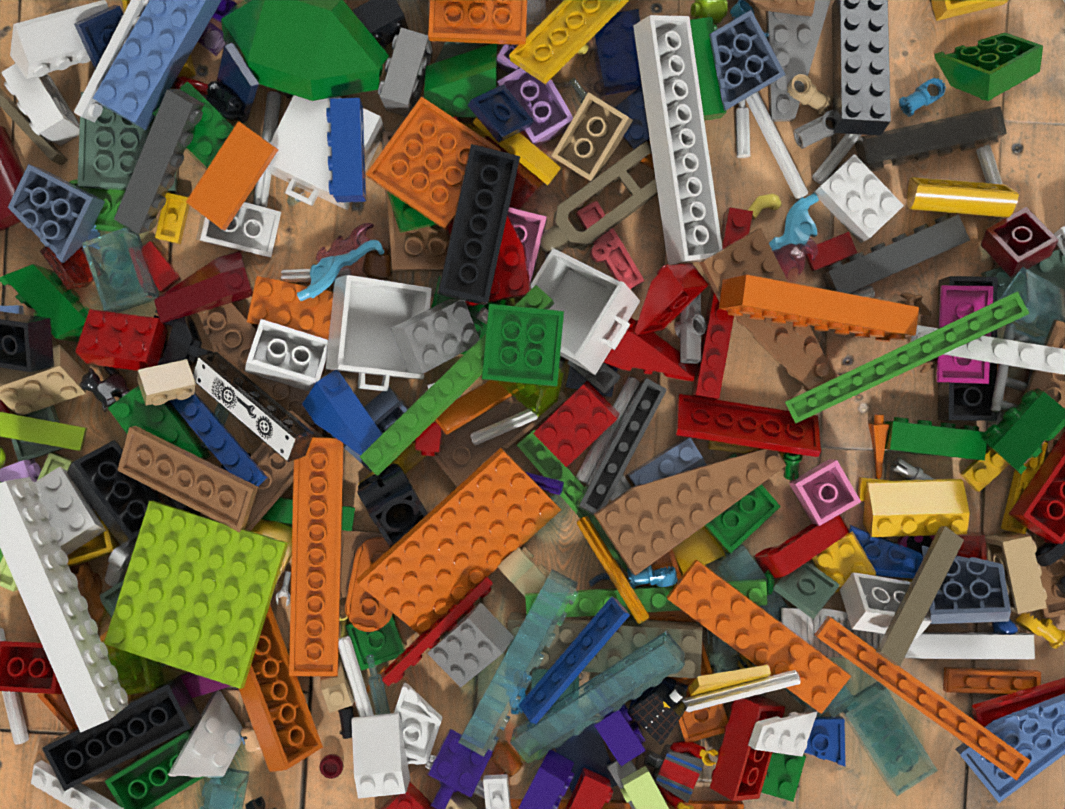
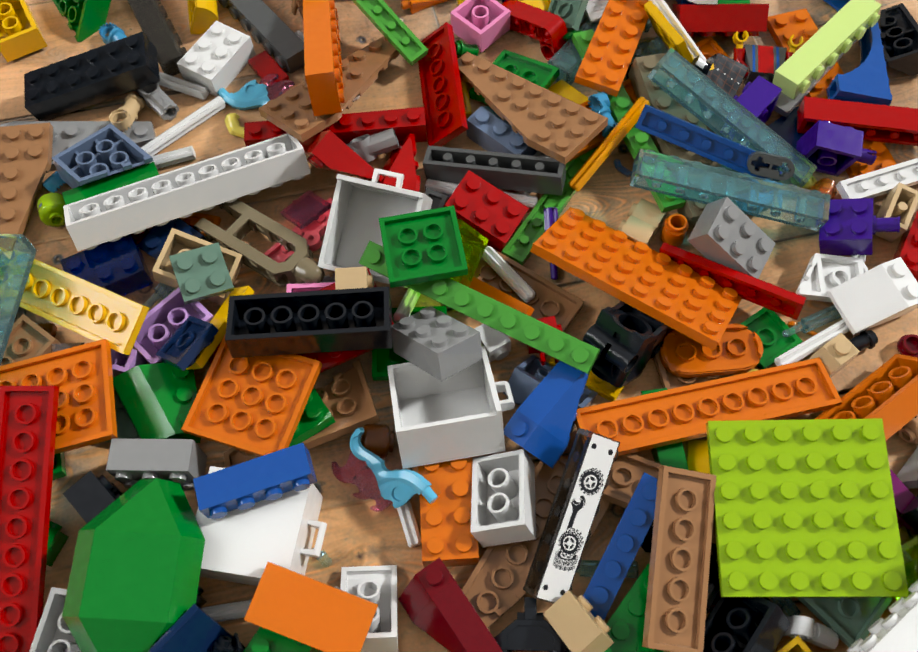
camera: 105 degrees left, 25 degrees down
(502, 606) = (674, 229): none -> orange brick
(509, 273) = (353, 278): none -> tan brick
(528, 711) = (770, 159): none -> dark grey beam
(575, 138) = (201, 273): none -> sand green plate
(637, 253) = (305, 209): none -> clear pink piece

